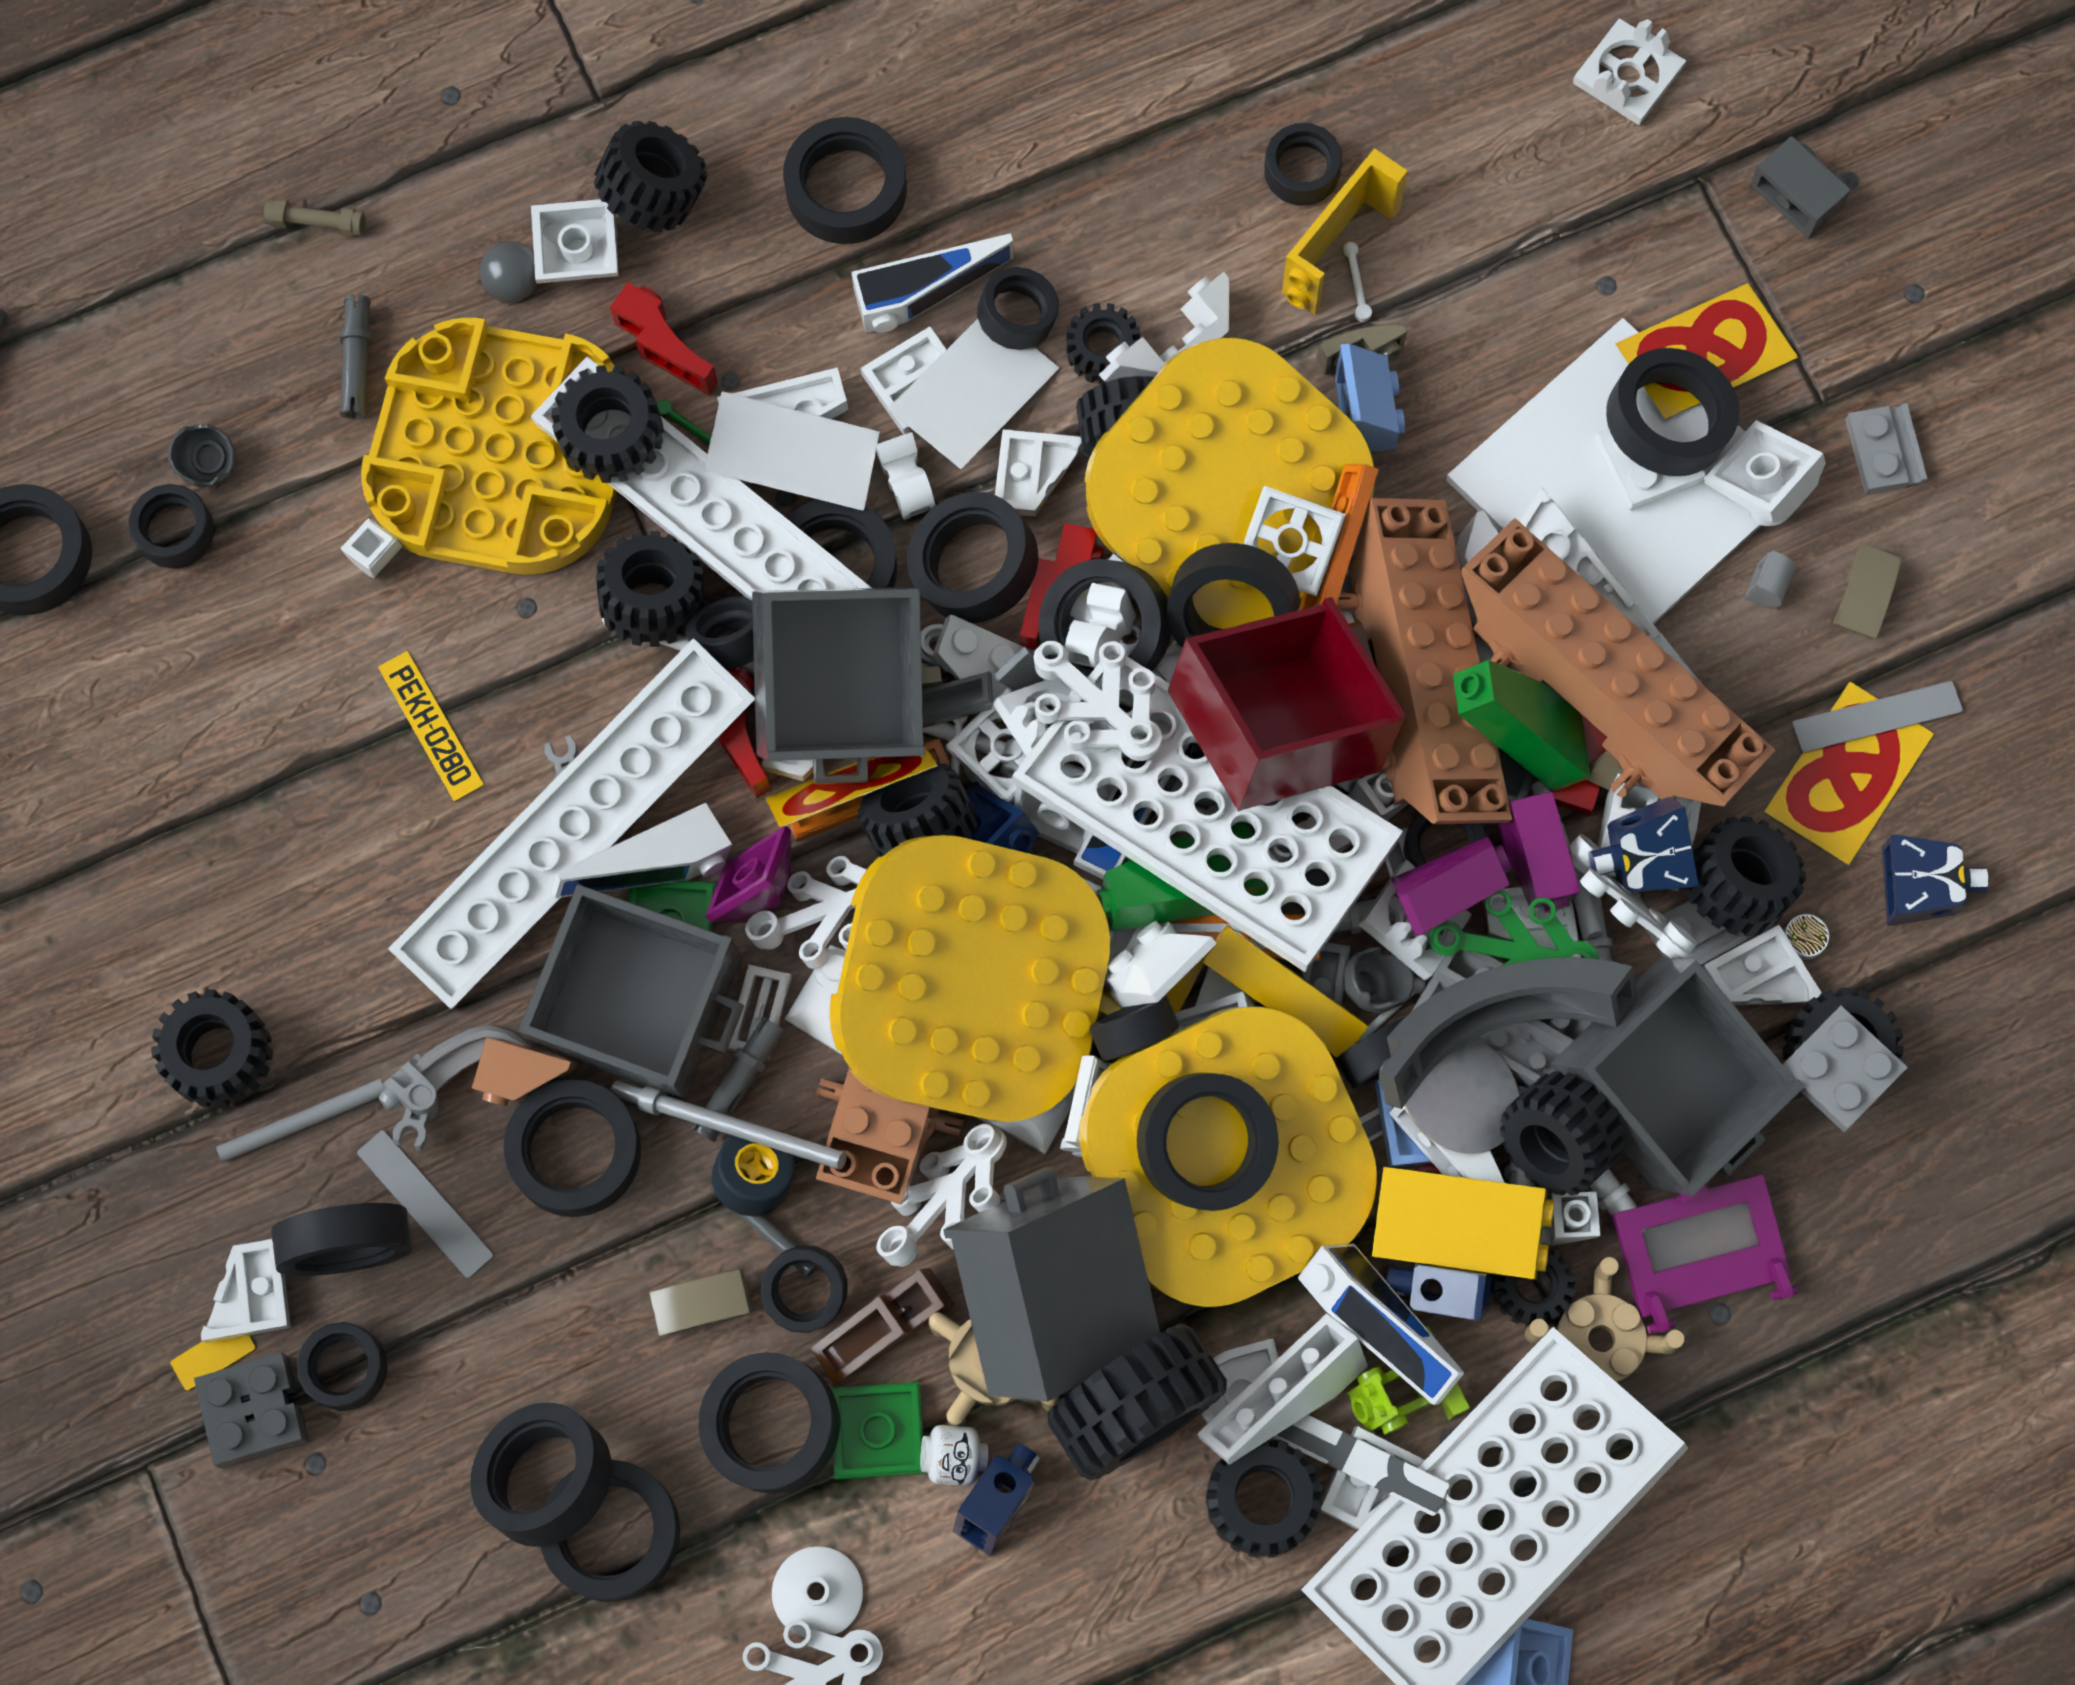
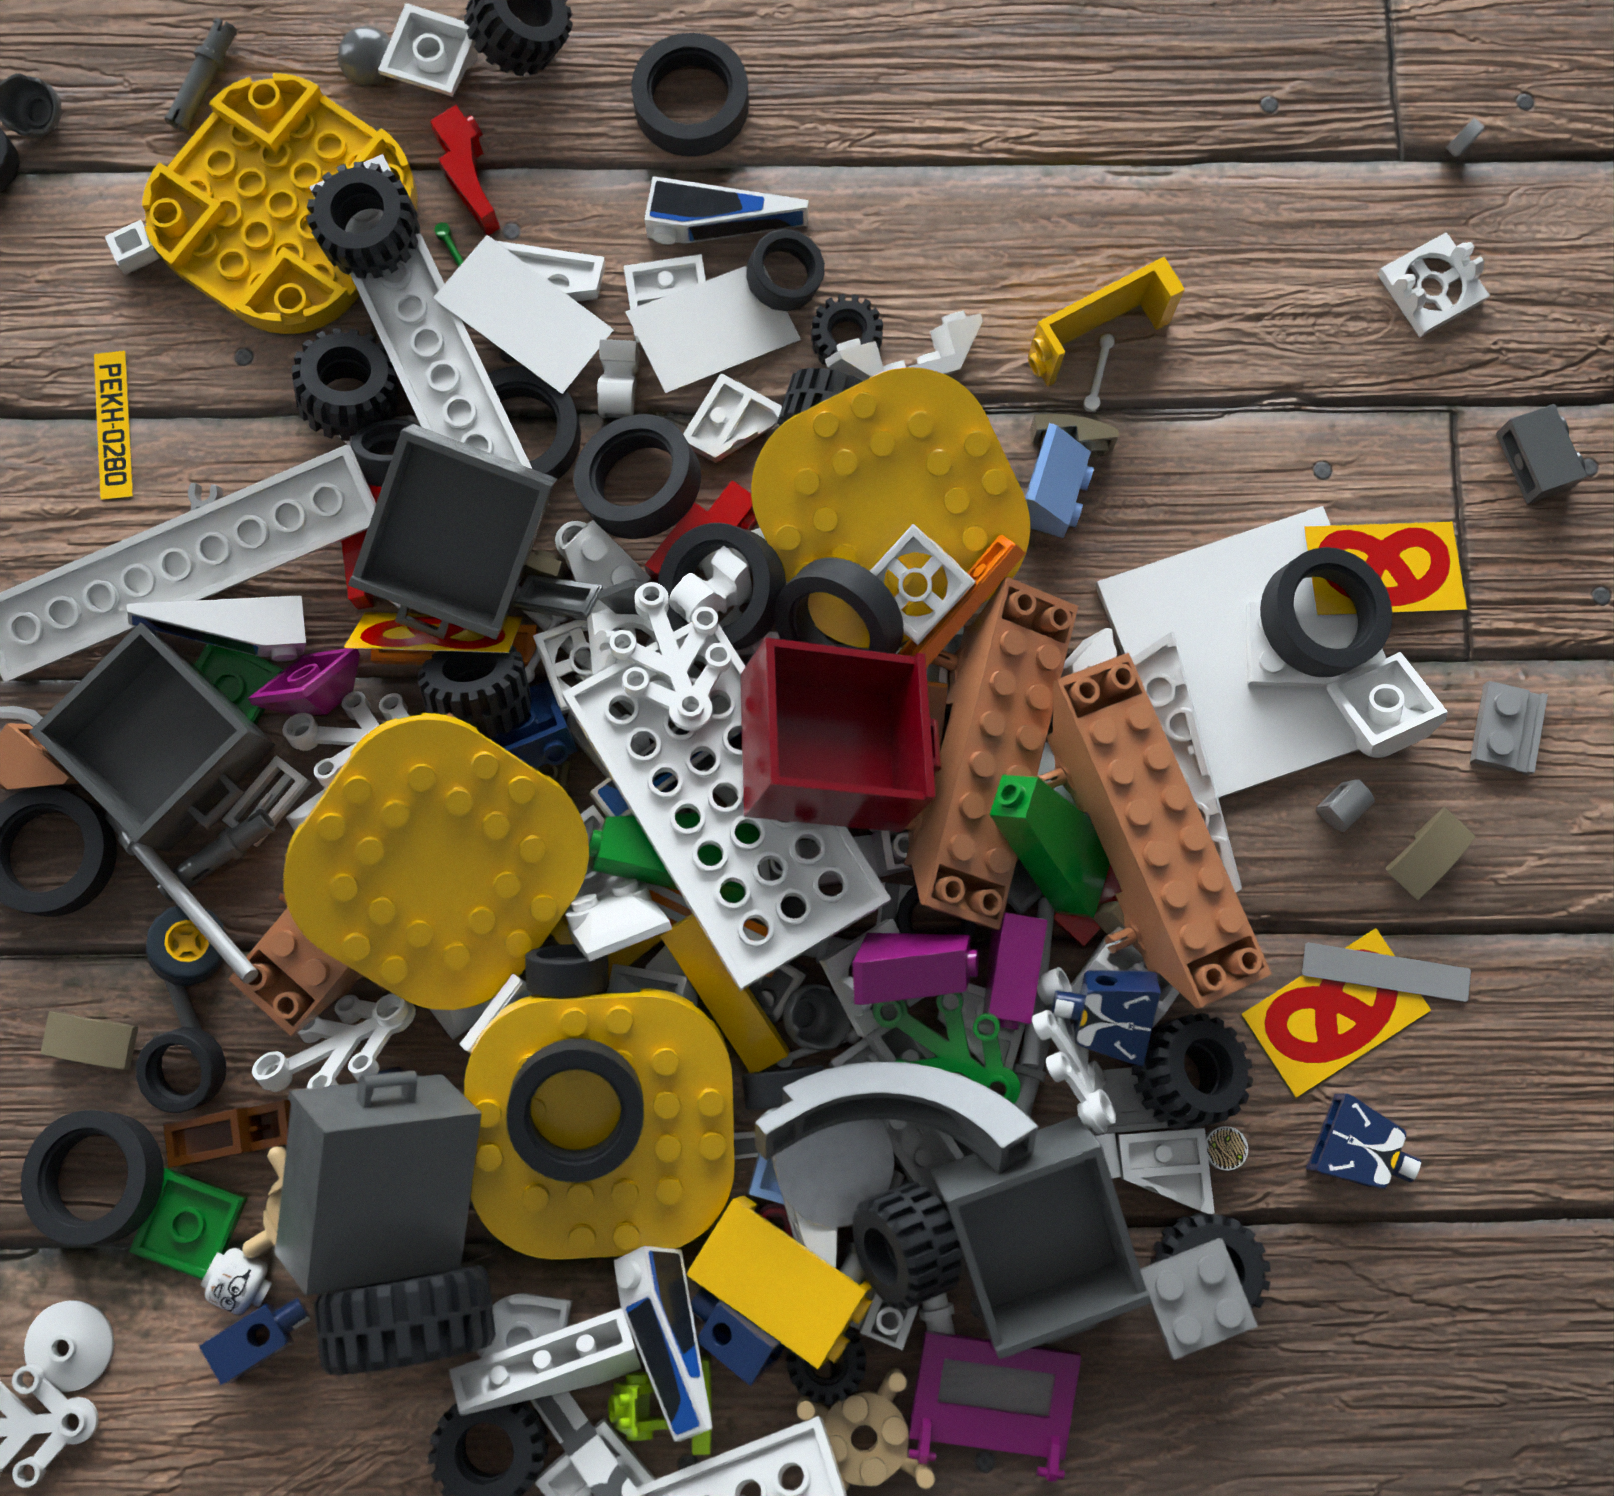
camera: 20 degrees right, 5 degrees up
(1302, 136) = (1099, 218): black tyre -> none

